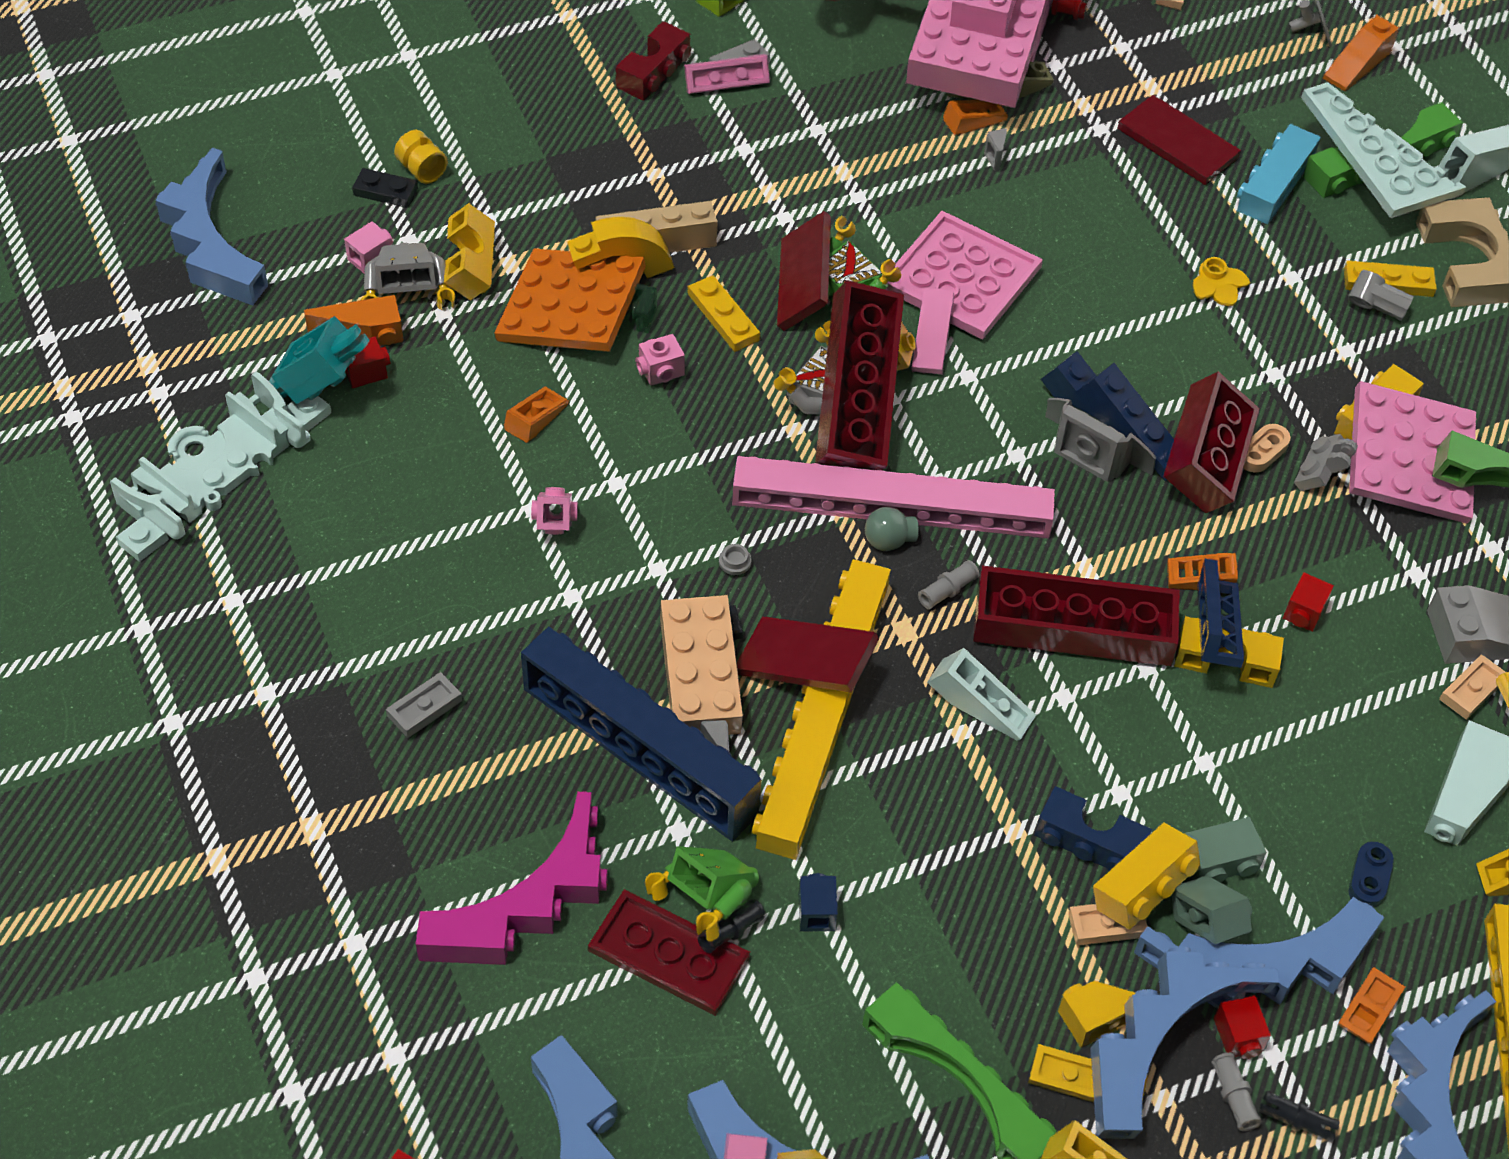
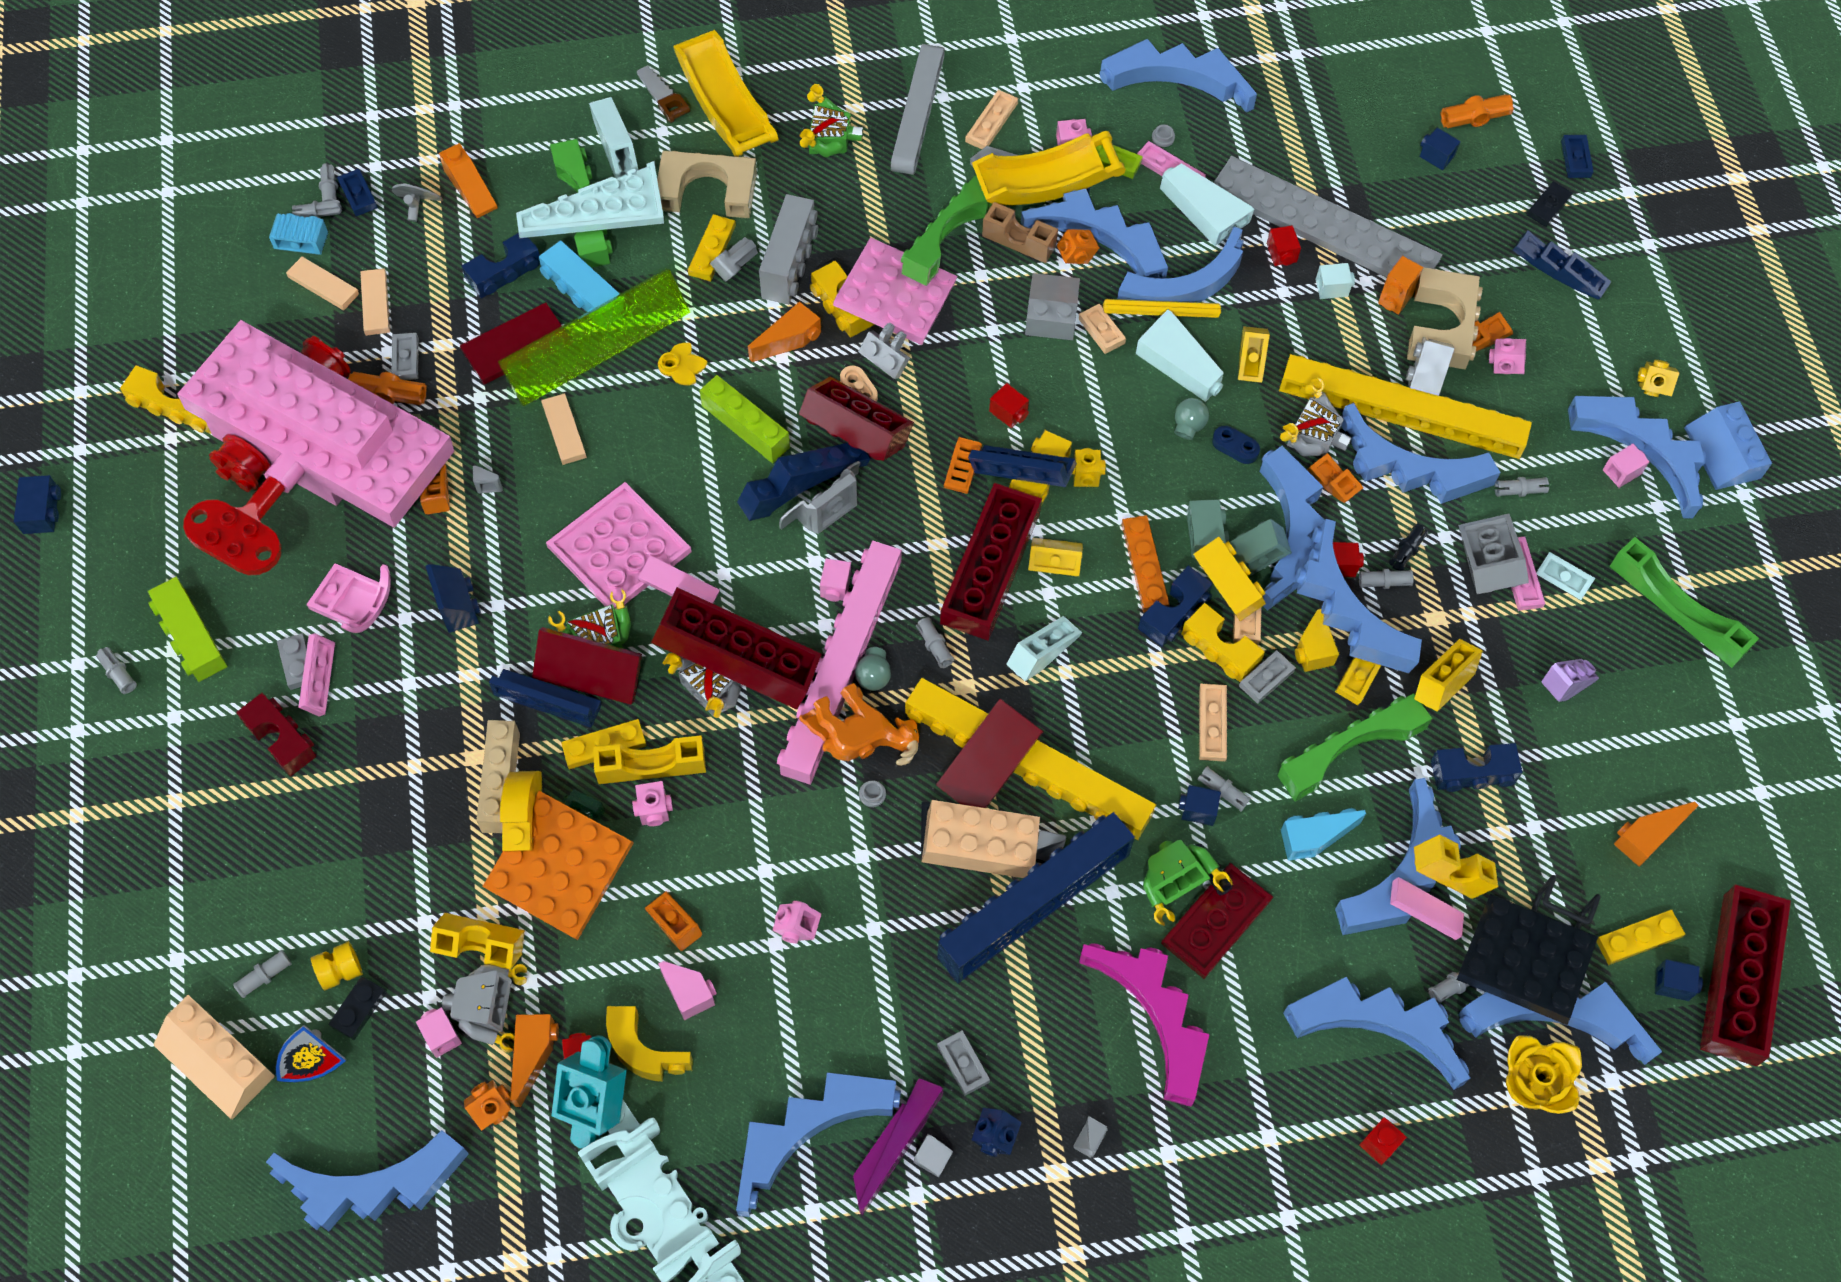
camera: 75 degrees left, 10 degrees up
(293, 542) = (772, 1145): none -> medium blue arch
(297, 295) = (485, 1113): none -> orange brick
(310, 694) = (932, 1155): none -> light grey slope
(316, 656) = (895, 1142): none -> magenta wedge
(317, 97) = (211, 1057): none -> light nougat slope
(322, 155) = (306, 1057): none -> shield
(343, 745) = (996, 1132): none -> dark blue brick
(356, 850) = (1090, 1137): none -> light grey slope
(382, 399) = (642, 1061): none -> yellow arch
(403, 110) = (262, 974): none -> light grey pin
(456, 434) = (688, 989): none -> bright pink slope
(699, 325) = (623, 764): none -> yellow arch
(761, 253) = (545, 697): none -> dark blue fence
(803, 525) = (862, 731): none -> orange animal
(814, 1048) = (1312, 835): none -> medium azure slope
(819, 80) = (351, 597): none -> bright pink piece
(846, 146) = (453, 597): none -> dark blue slope
(850, 929) = (1227, 790): none -> light grey pin
(944, 906) = (1212, 722): none -> light nougat tile
(994, 466) = (835, 579): none -> bright pink brick
(1029, 958) = (1267, 676): none -> light grey plate
(1069, 871) = (1236, 659): none -> yellow arch
(1074, 51) = (391, 387): none -> orange piece
(1090, 200) = (563, 429): none -> light nougat tile
(1115, 688) = (1055, 556): none -> yellow panel
(1119, 56) = (405, 356): none -> light grey plate
(1147, 792) = (1144, 561): none -> orange plate
(1169, 346) = (744, 419): none -> lime brick
(1176, 21) = (375, 302): none -> light nougat tile
(1214, 194) = (594, 337): none -> clear neon green plate
(1248, 96) = (487, 276): none -> dark blue arch
(1253, 698) = (1088, 468): none -> yellow brick
(1302, 364) = (788, 333): none -> orange slope
(1383, 806) = (1190, 418): none -> sand green piece
(1415, 335) = (788, 249): none -> light grey brick
(1437, 964) = (1317, 425): none -> torso

